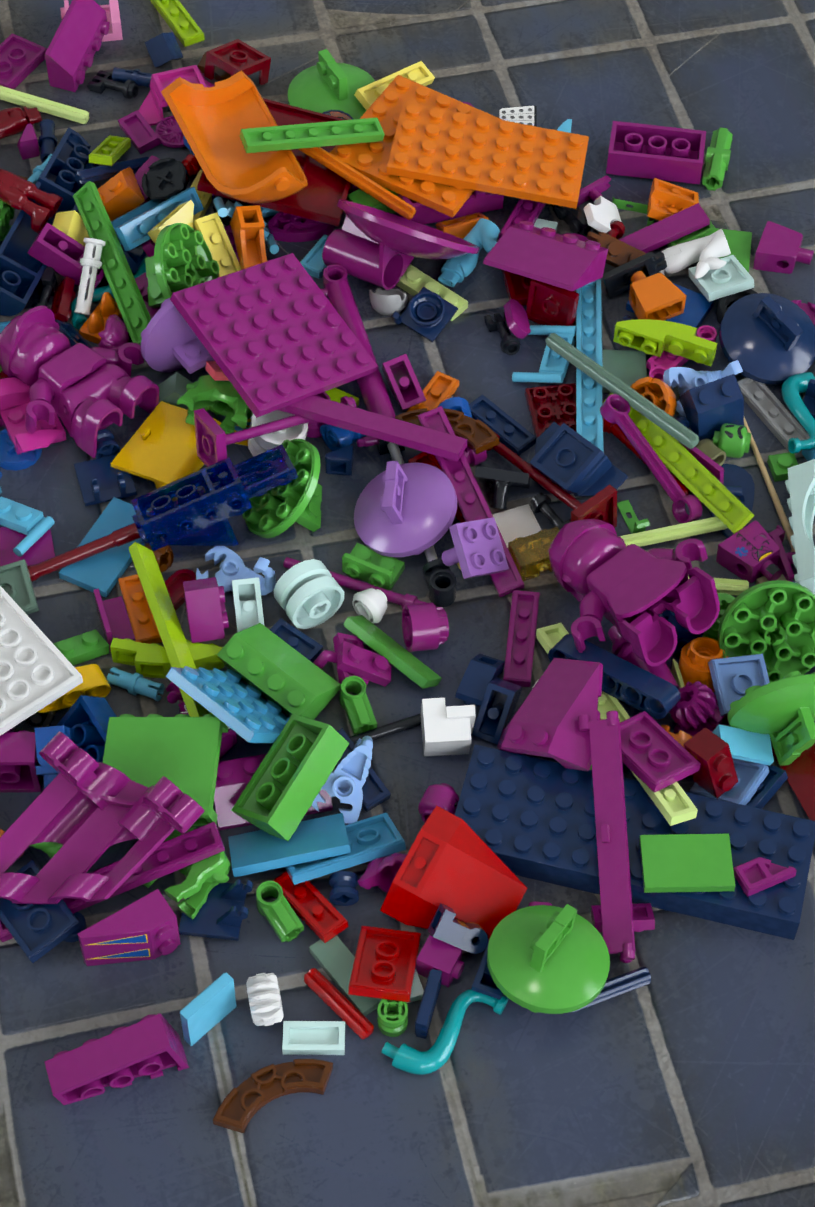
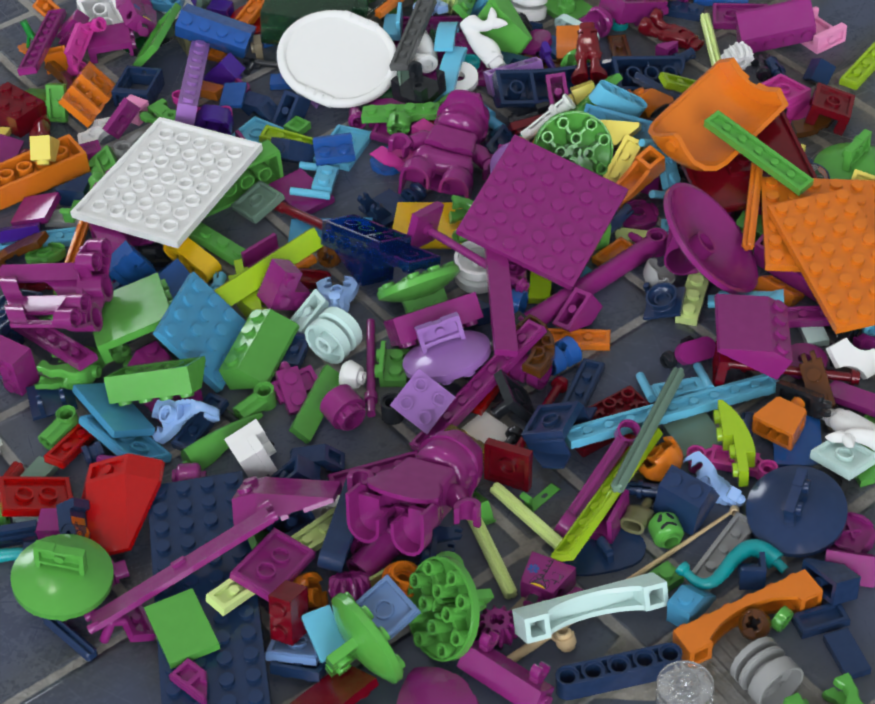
camera: 70 degrees right, 10 degrees down
(95, 93) = (741, 52): none -> white gear
(125, 204) = (617, 99): none -> medium azure beam
(344, 500) = (402, 330): none -> magenta brick
(397, 767) = (212, 446): none -> bright green piece

